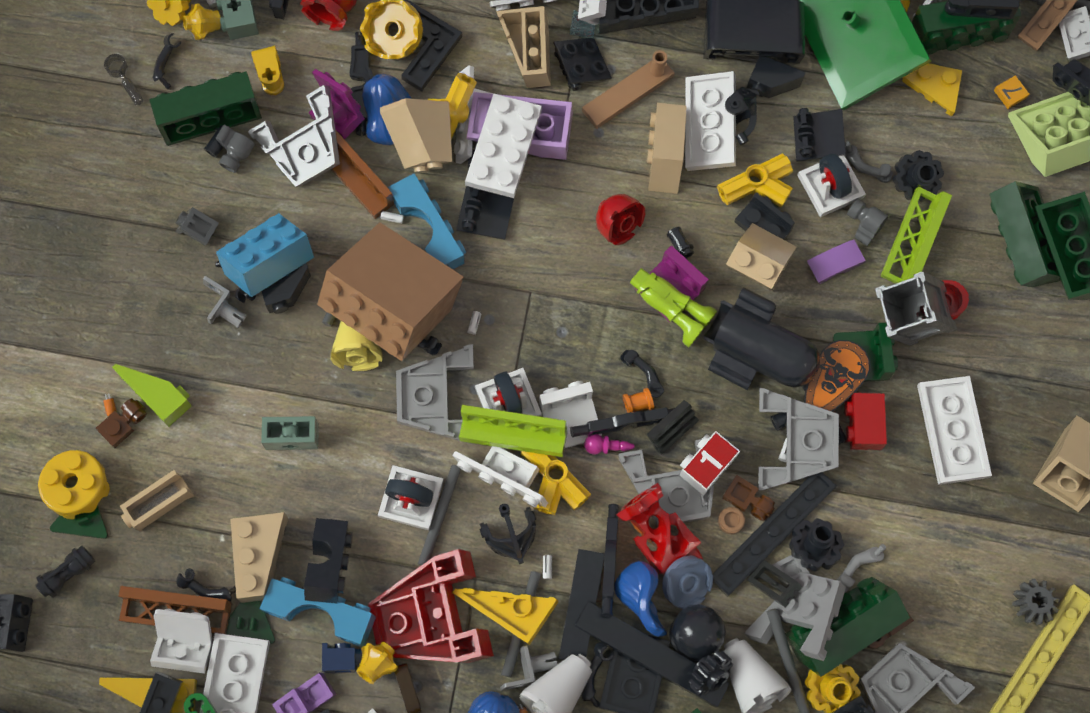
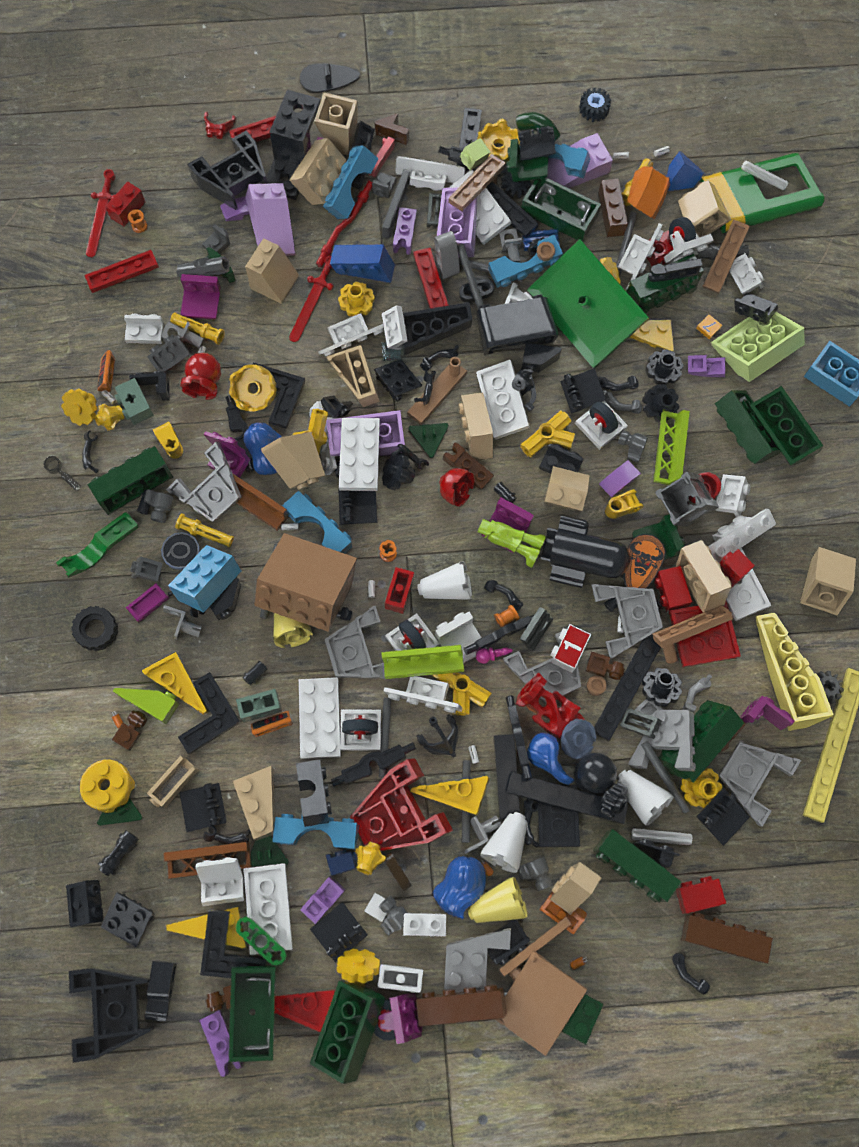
camera: 15 degrees left, 0 degrees up
(54, 656) = (127, 919): none -> black hinge
(98, 270) = (86, 616): none -> black tyre
(149, 178) = (100, 544): none -> green piece
(186, 268) = (147, 602): none -> magenta tile
(186, 542) = (203, 807): none -> black hinge
(193, 369) = (173, 676): none -> yellow wing
(237, 441) = (222, 717): none -> black plate
(244, 211) = (179, 550): none -> black tile
(272, 189) = (196, 527): none -> yellow pin
(296, 391) = (254, 673): none -> black pin
(300, 461) = (271, 724): none -> orange slope
(362, 469) = (319, 718): none -> white plate
(429, 543) = (363, 768): none -> black piece
(490, 79) = (334, 407): none -> black bracket
(506, 272) = (384, 546): none -> orange bush
(508, 332) = (399, 590): none -> red brick
(548, 180) = (397, 471): none -> black plant
(570, 163) = (407, 452): none -> black piece
(573, 340) = (447, 584): none -> white cone
(602, 145) = (429, 436): none -> dark green piece
(622, 72) = (429, 378): none -> black piece
(625, 49) = (449, 353): none -> black piece
(640, 189) = (466, 461): none -> reddish brown plate
(836, 296) = (626, 503): none -> yellow piece
(873, 476) = (688, 628): none -> medium nougat piece
(887, 141) = (607, 384): none -> black piece
(892, 490) = (707, 646): none -> red plate
(910, 414) = (703, 576): none -> tan brick
(936, 130) = (664, 367): none -> black plant
(946, 606) = (766, 707): none -> magenta bracket
(953, 413) = (735, 566): none -> red brick
(975, 372) = (740, 533): none -> white bracket
(981, 319) = (733, 494): none -> white bracket
(993, 144) = (706, 367): none -> medium lavender slope
(994, 583) = (793, 681): none -> light yellow wedge

